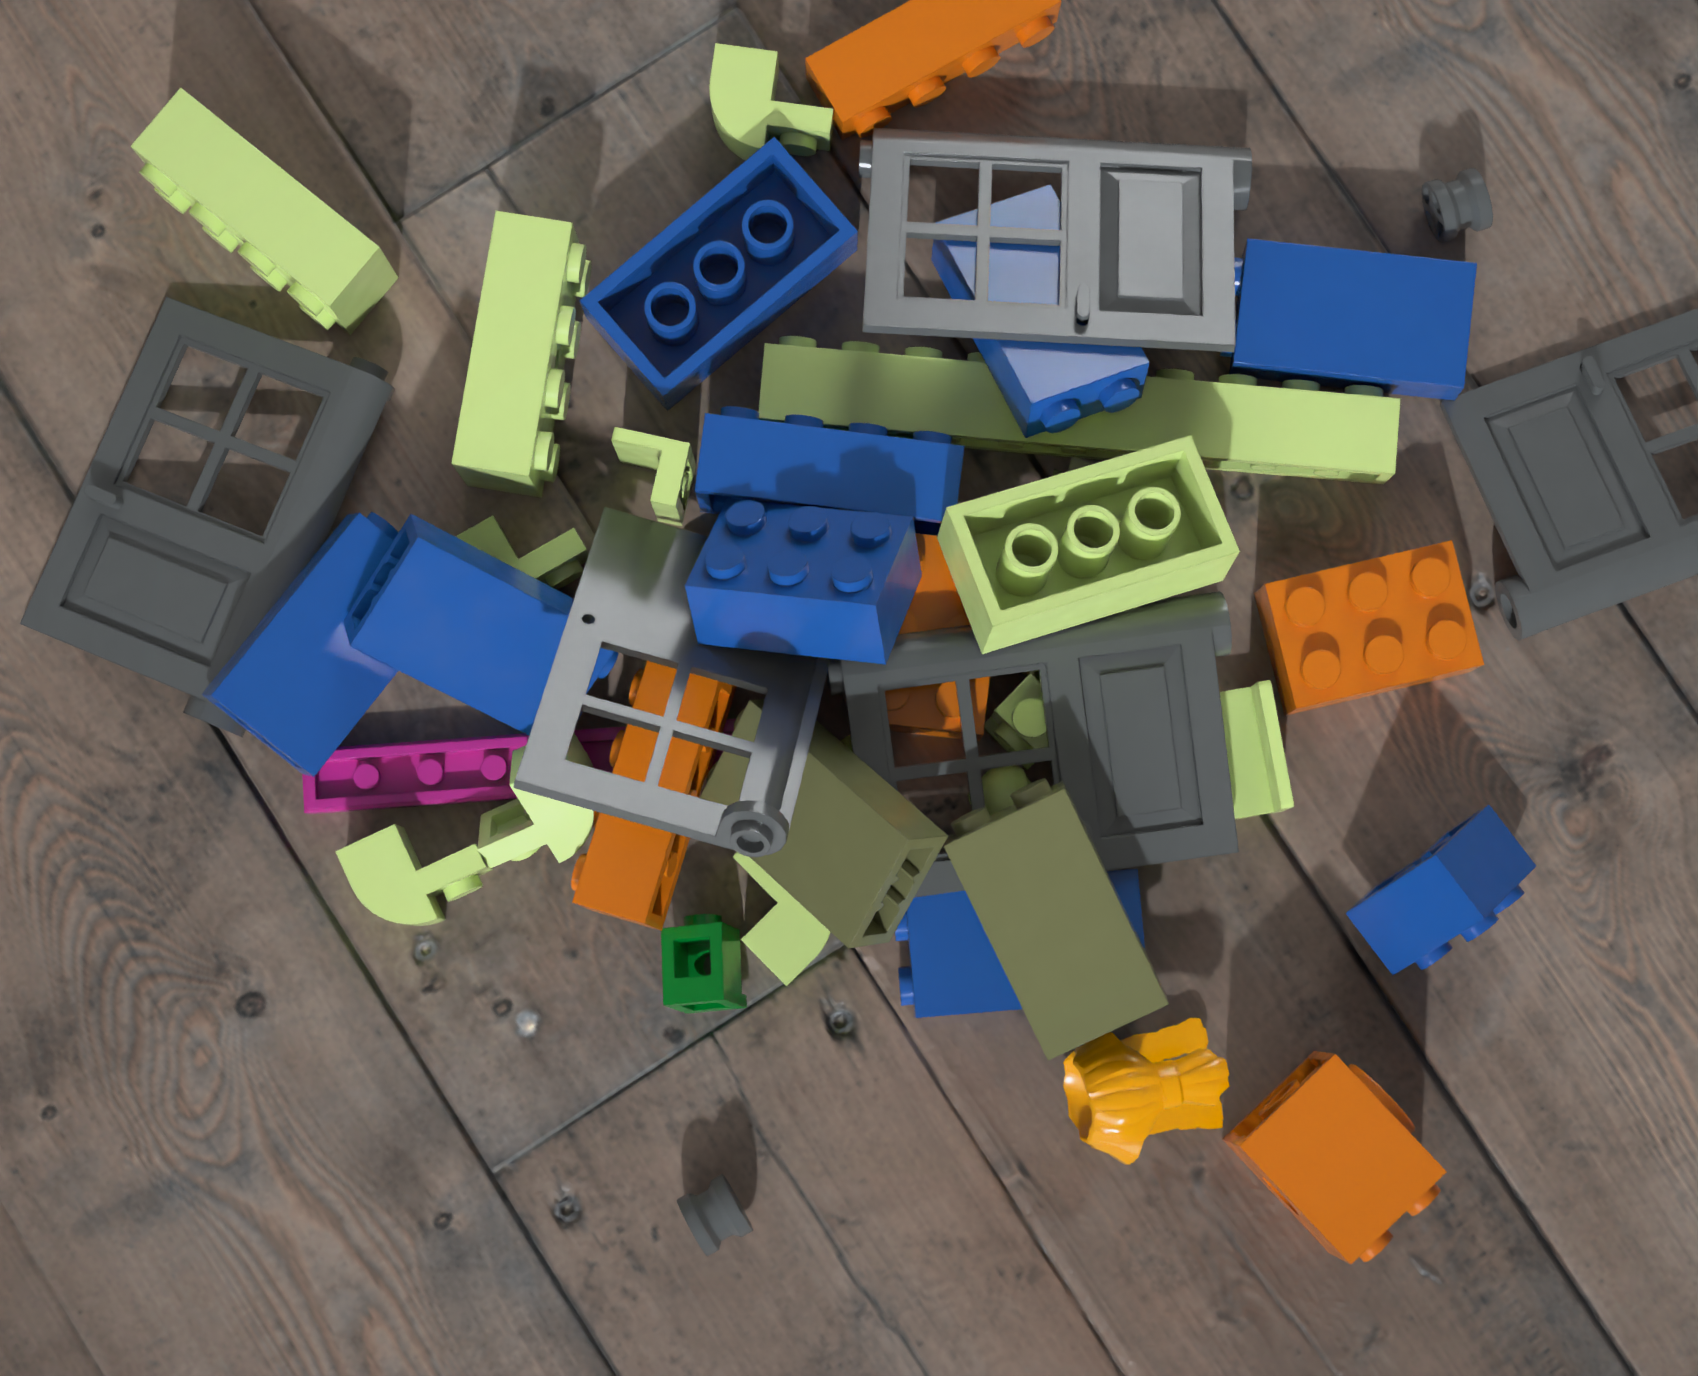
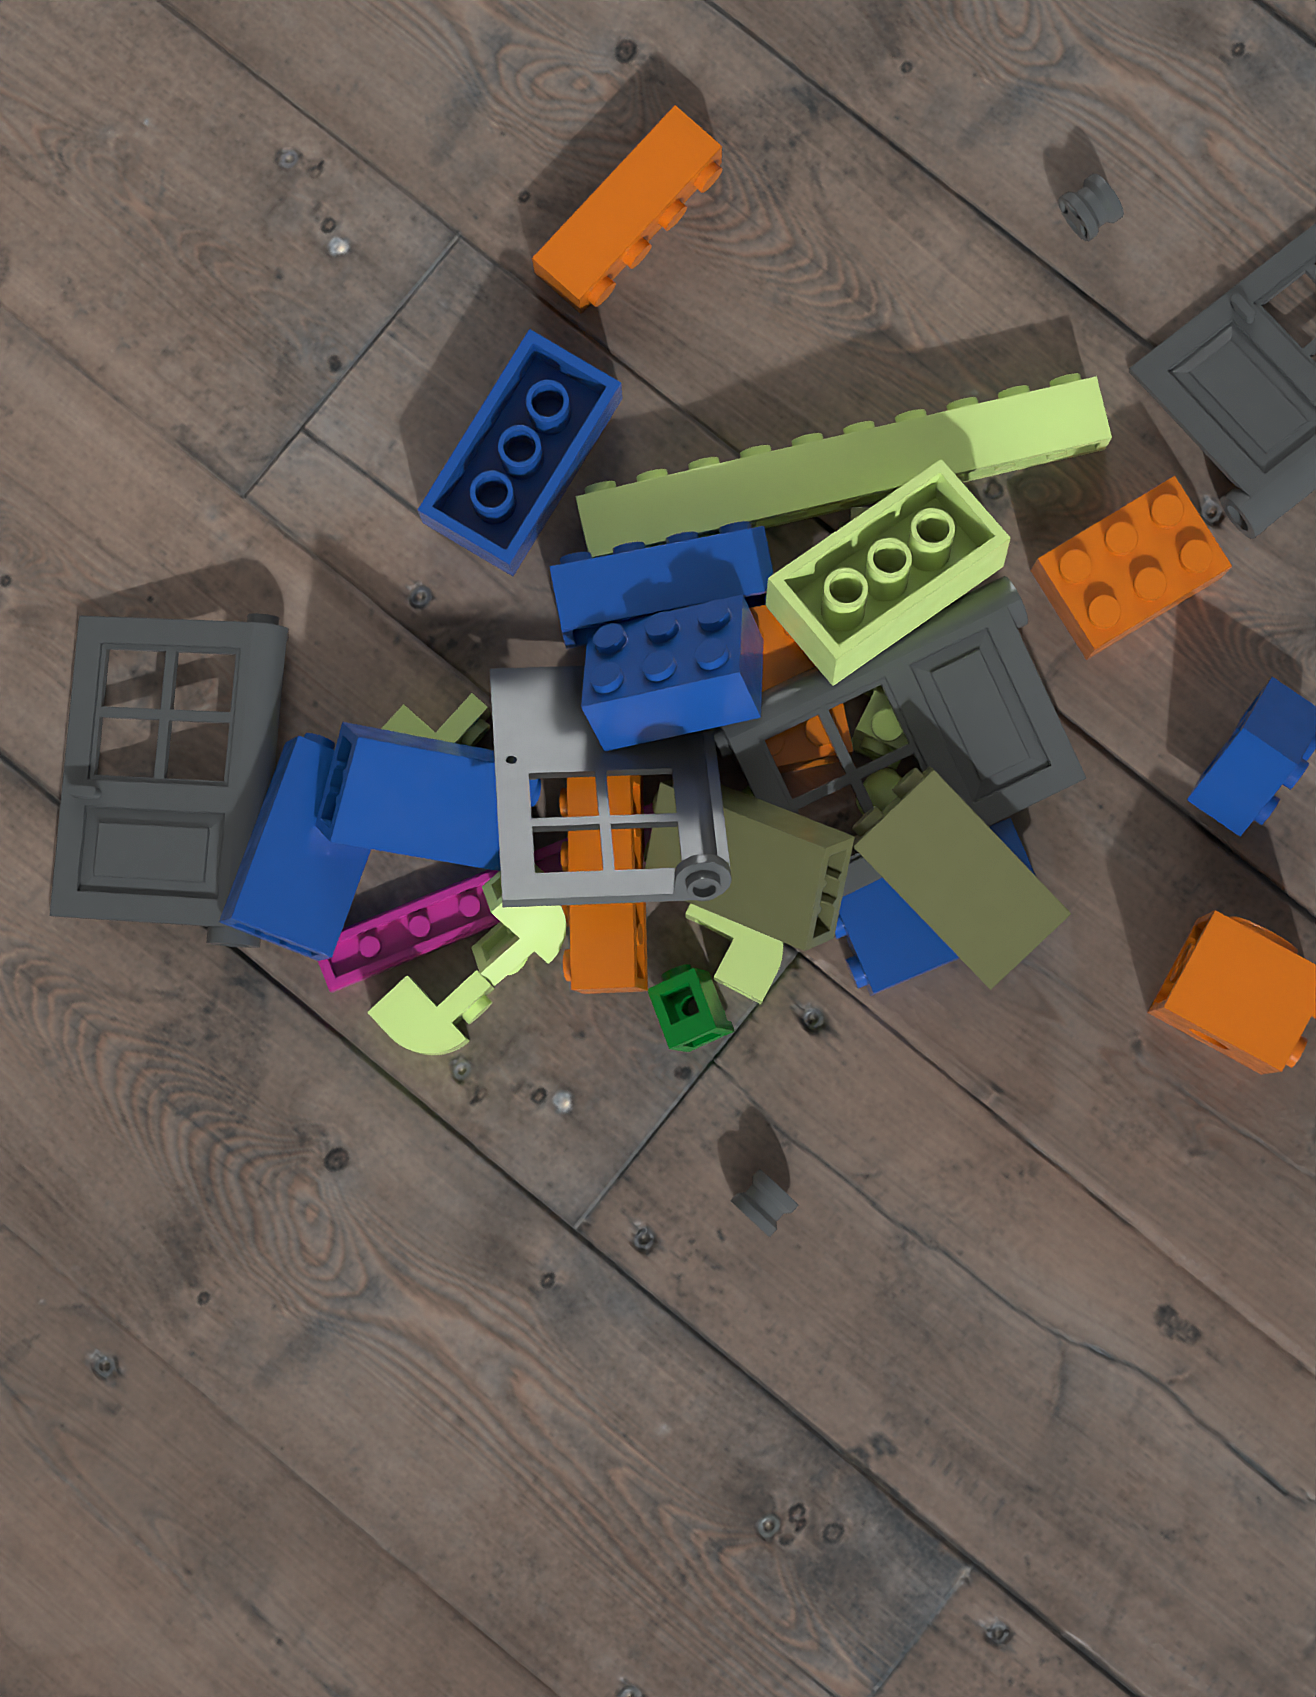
camera: 10 degrees left, 0 degrees up
(267, 212) = (139, 521): yellowish green brick -> none
(520, 355) = (382, 570): yellowish green brick -> none
(674, 469) = (521, 612): yellowish green panel -> none
(746, 109) = (501, 319): yellowish green brick -> none
(1041, 381) = (786, 400): brick -> none
(1128, 1091) = (1072, 989): light orange piece -> none
(1137, 239) = (844, 310): door -> none
(1255, 751) = (1074, 695): yellowish green panel -> none
(1352, 318) = (1035, 325): blue brick -> none

